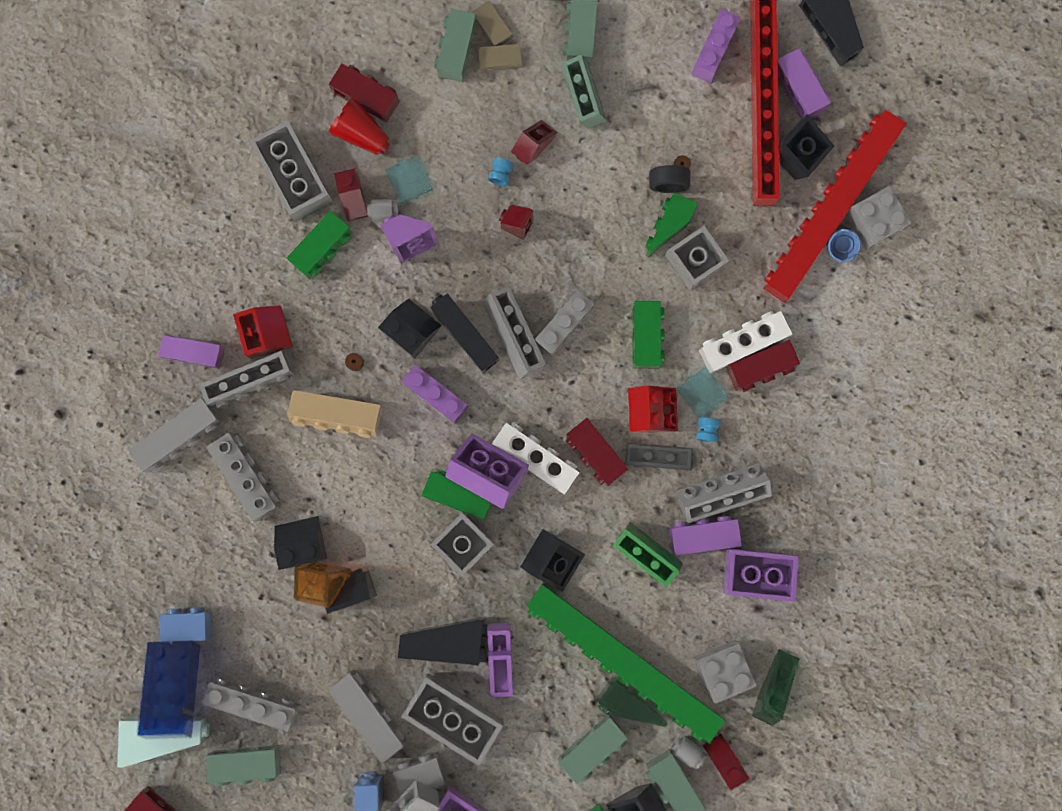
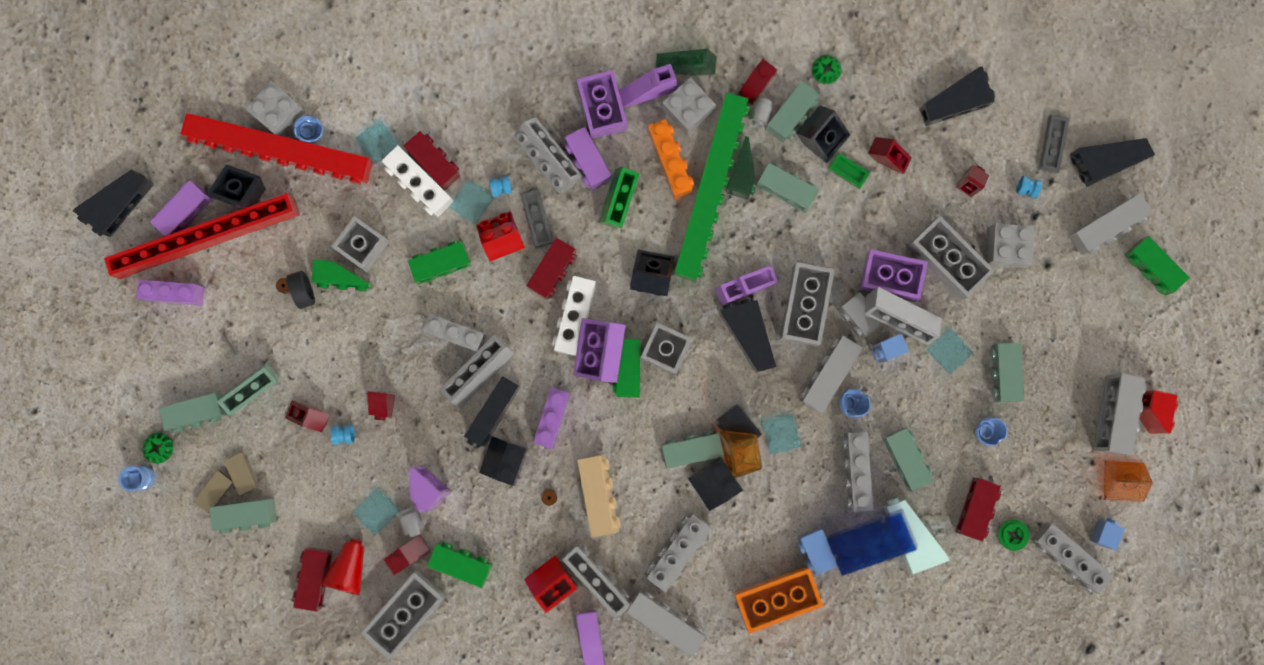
camera: 110 degrees left, 0 degrees up
(152, 564) = (778, 599): none -> orange brick
(325, 635) = (781, 434): none -> clear light blue piece
(326, 729) = (854, 403): none -> medium blue hair
(344, 532) = (692, 449): none -> sand green brick
(671, 628) = (670, 160): none -> orange brick
(763, 636) = (649, 86): none -> medium lavender slope
(805, 315) = (377, 142): none -> clear light blue piece

